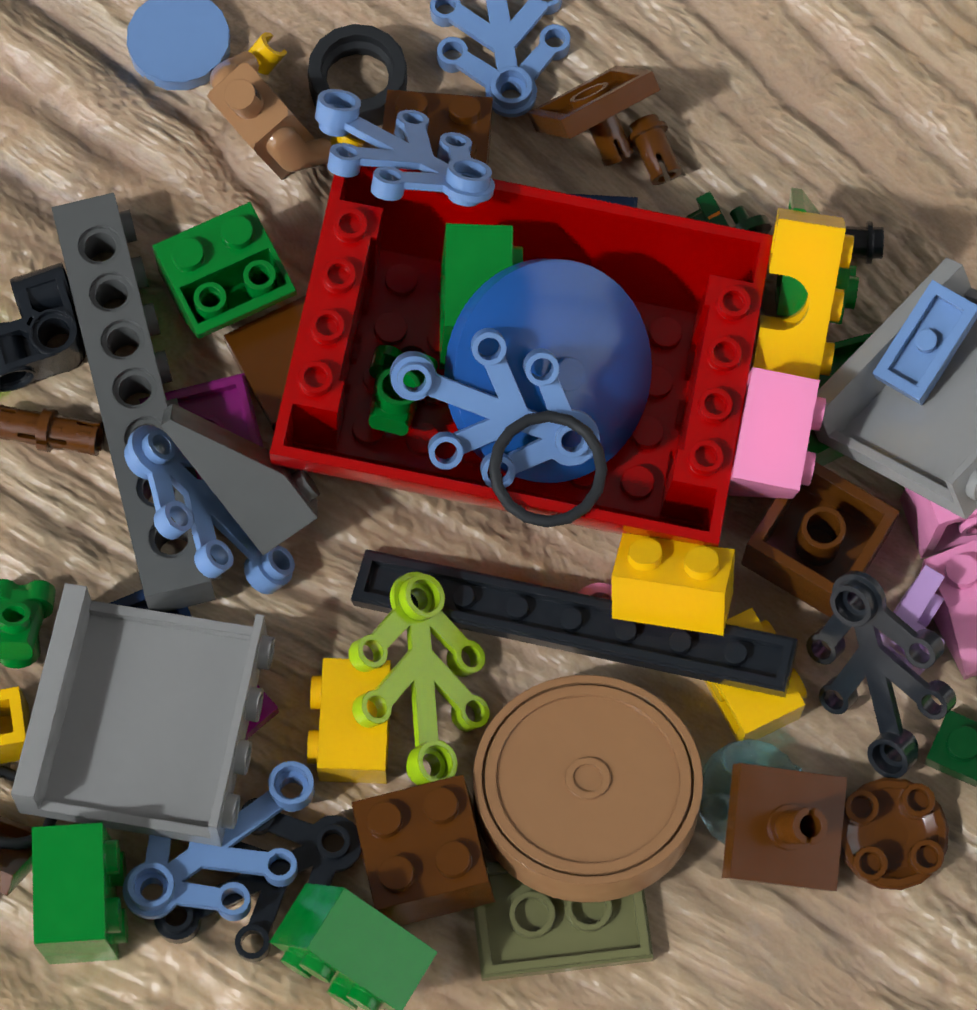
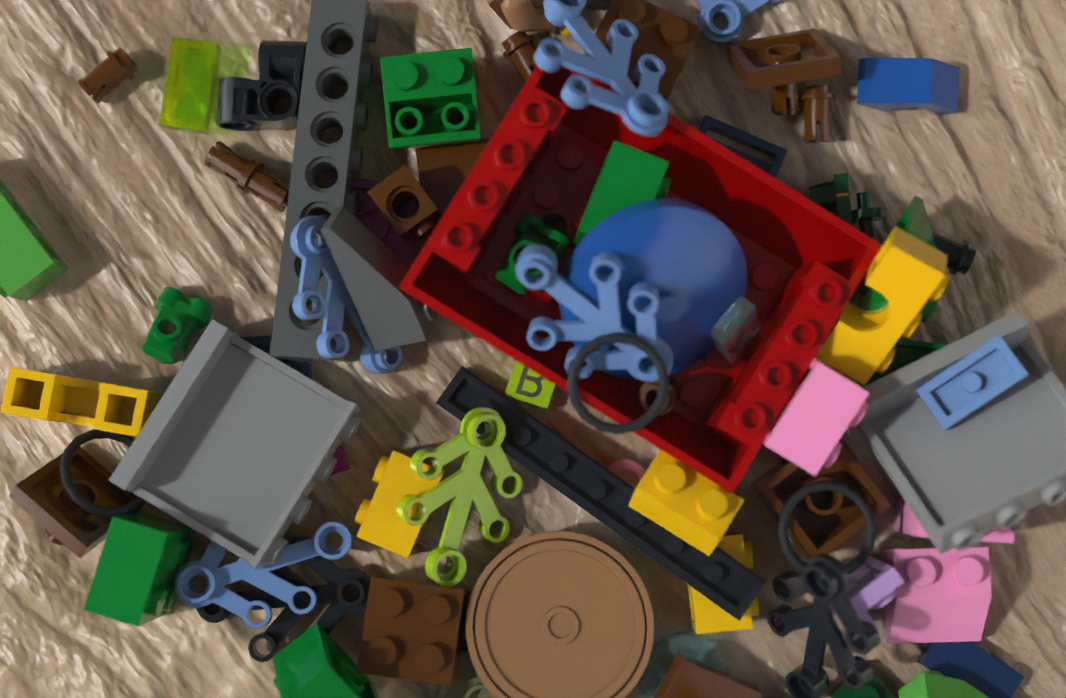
camera: 25 degrees right, 15 degrees up
(223, 375) = (397, 187): none -> reddish brown brick
(305, 195) = (521, 51): none -> reddish brown pin
(452, 537) = (529, 386): none -> lime tile
(584, 483) = (648, 394): none -> reddish brown pin
(654, 382) = (735, 329): none -> clear light blue tile
(734, 84) = (908, 83): none -> blue slope
(829, 512) = (835, 487): none -> black piece

